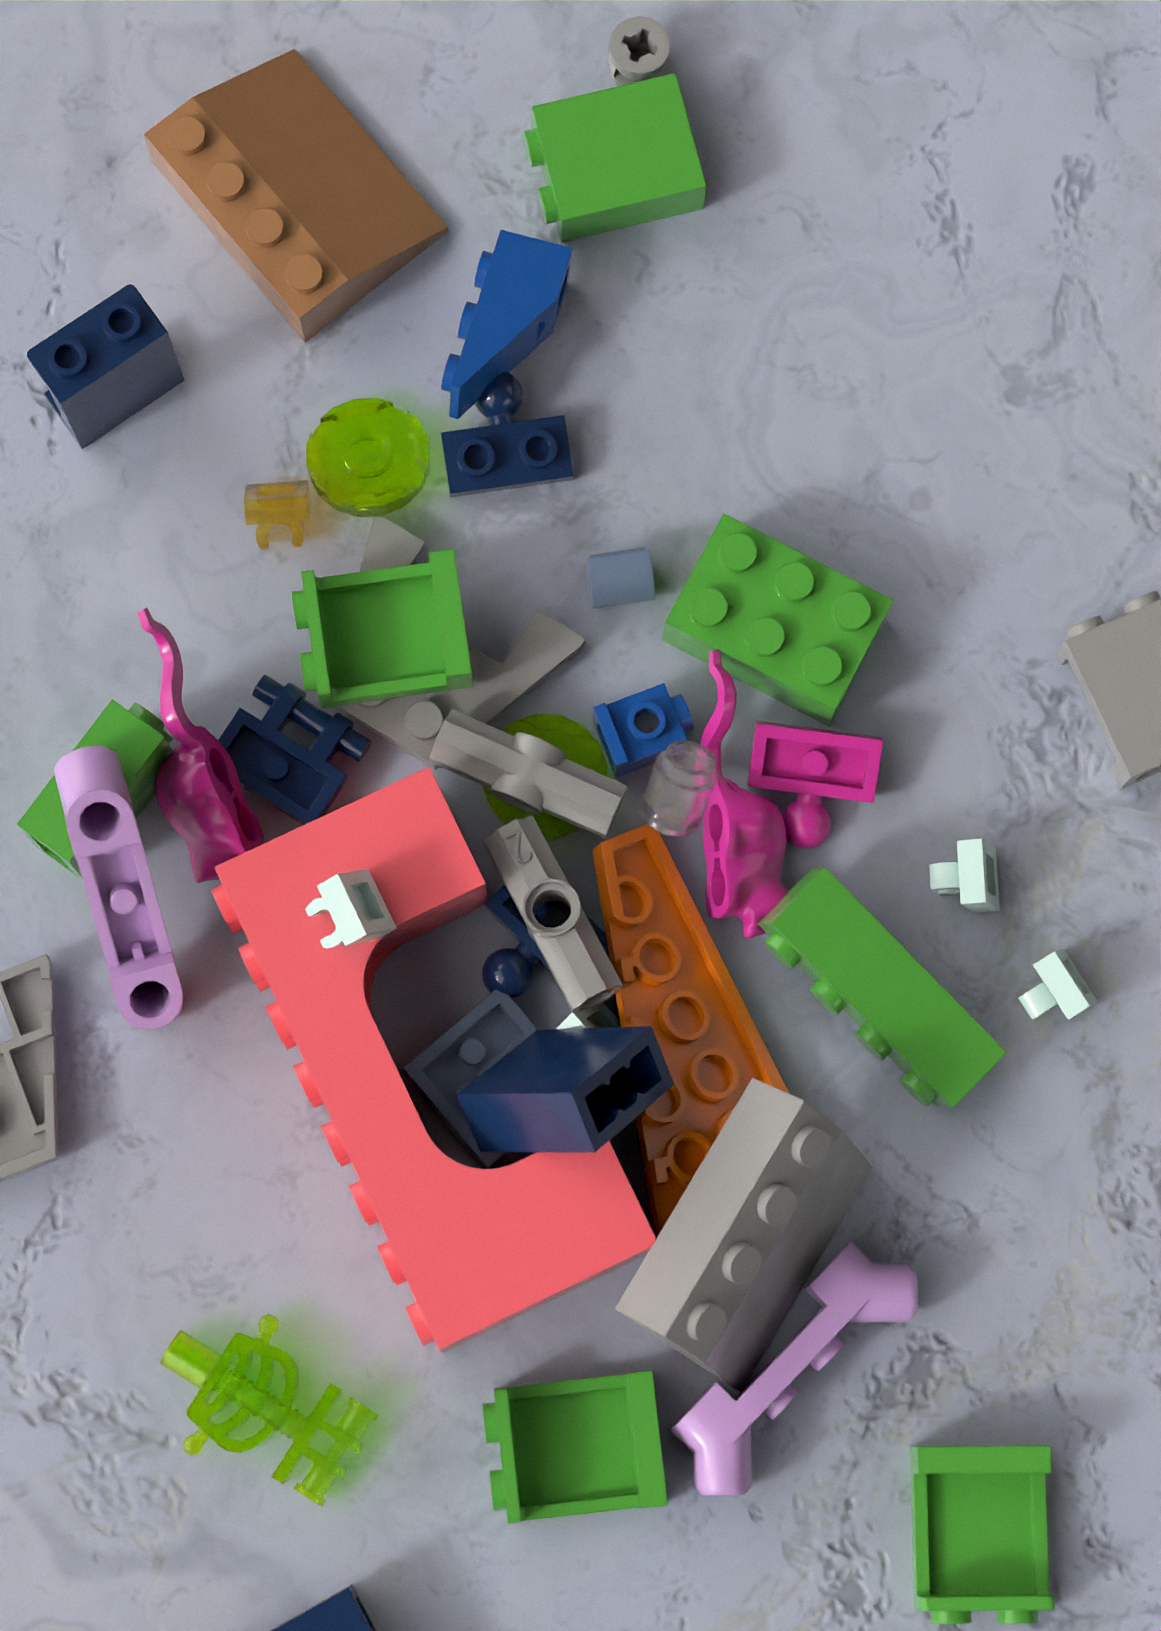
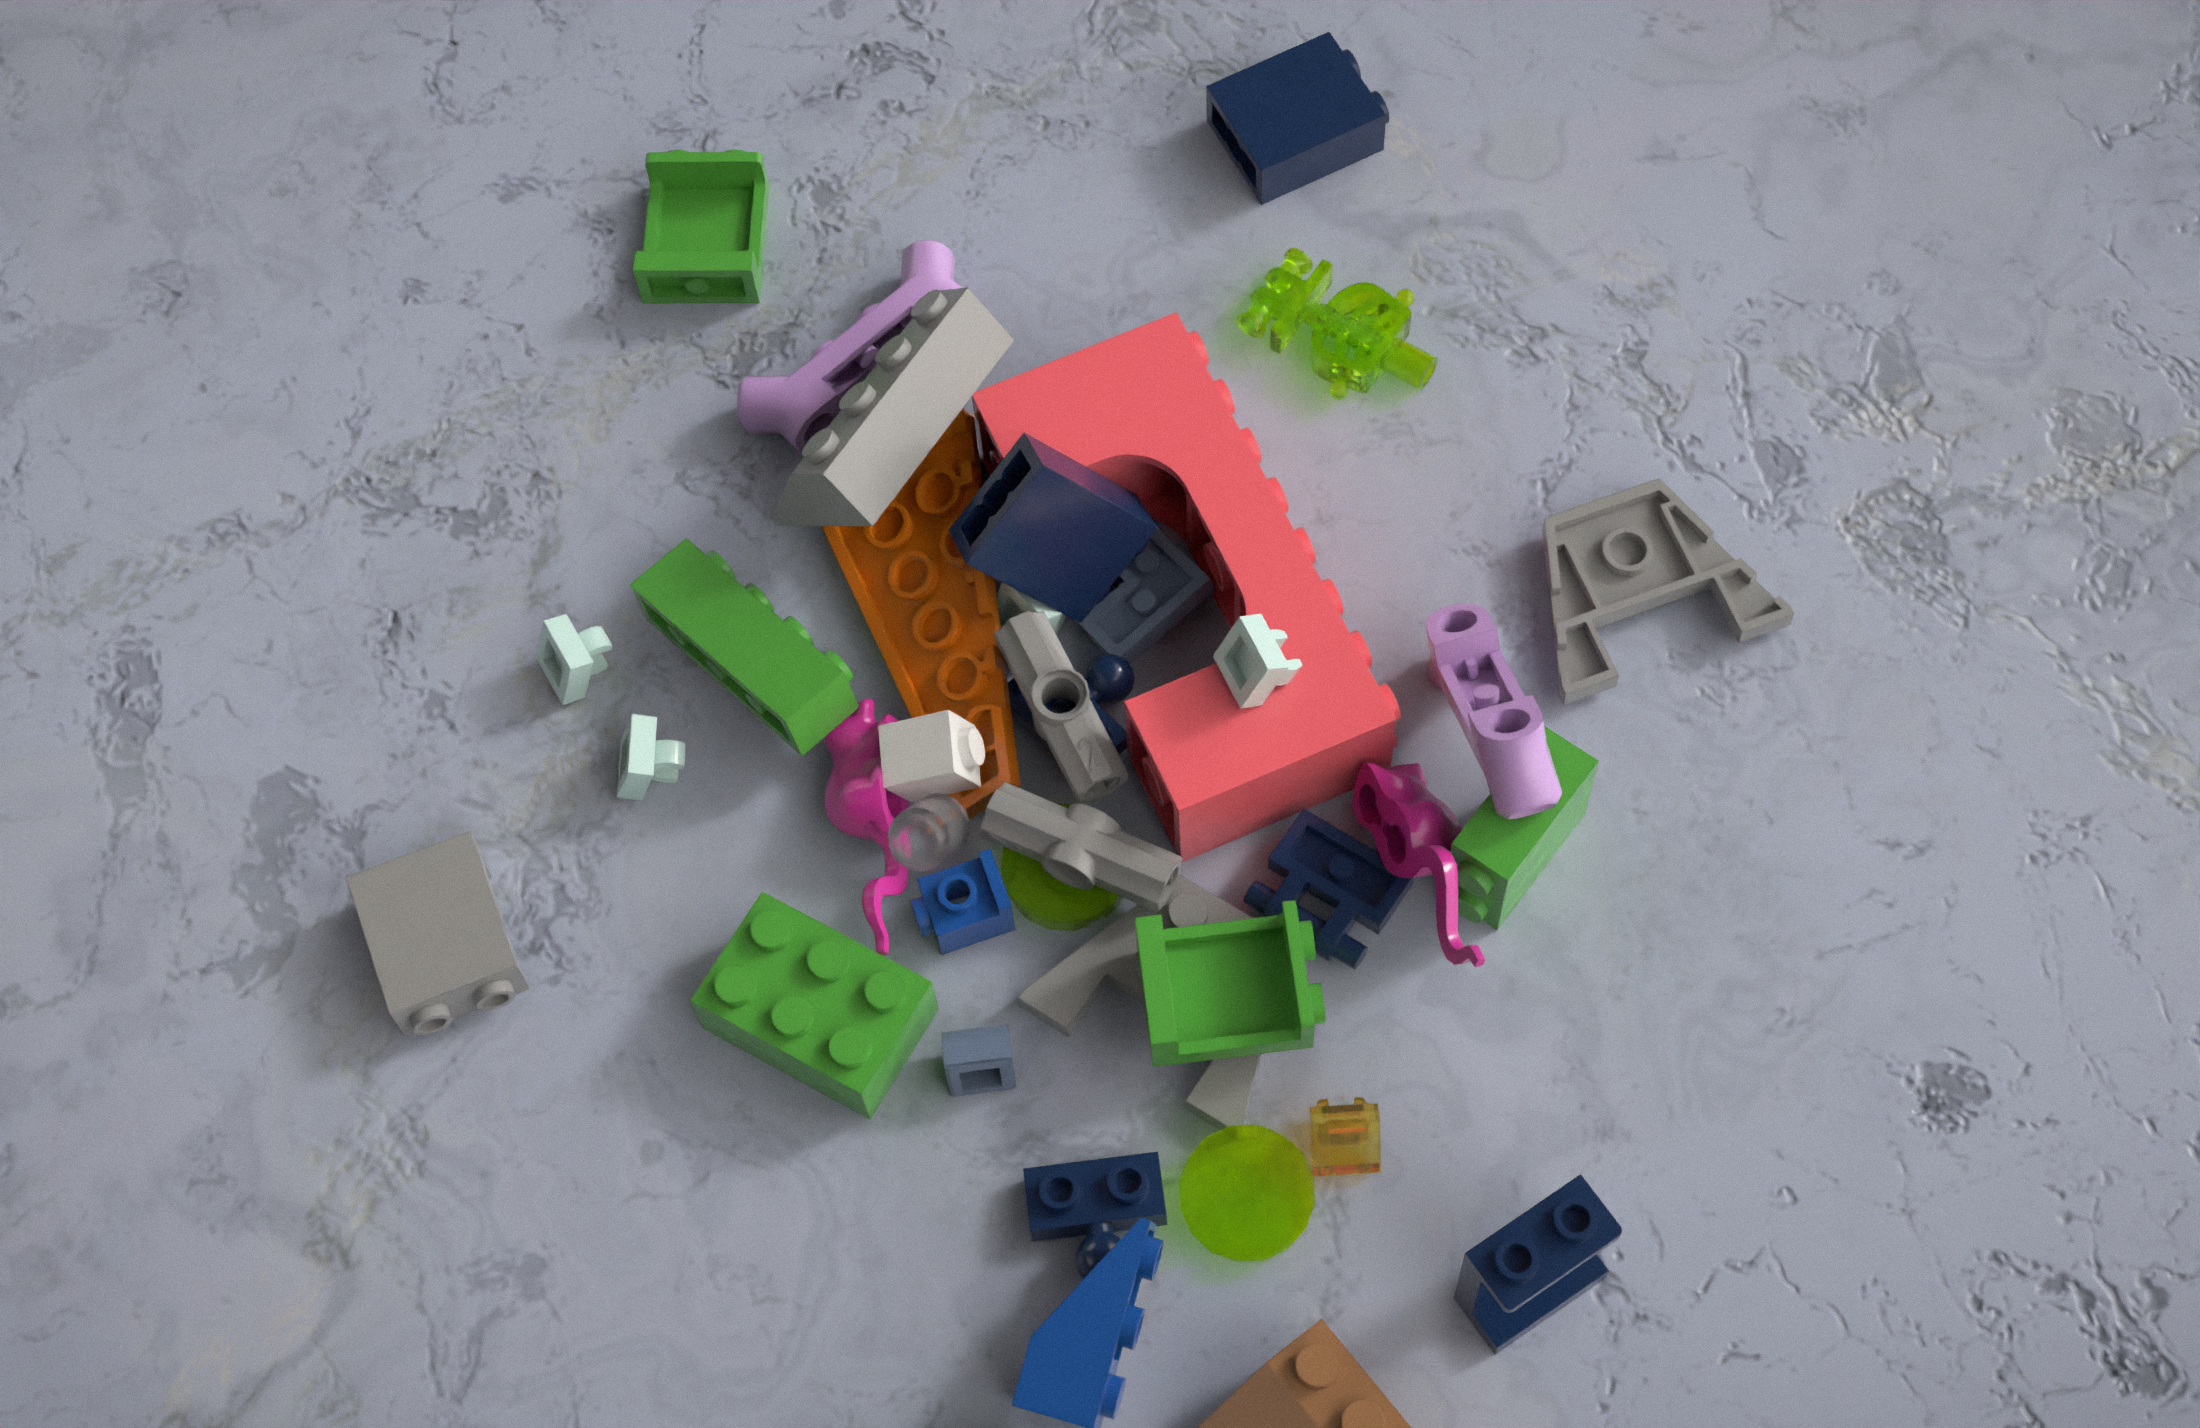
camera: 170 degrees left, 15 degrees down
(576, 1447) = (1059, 293): bright green panel -> none
(680, 861) = (930, 755): none -> white brick
(813, 766) = (791, 865): dark pink plate -> none

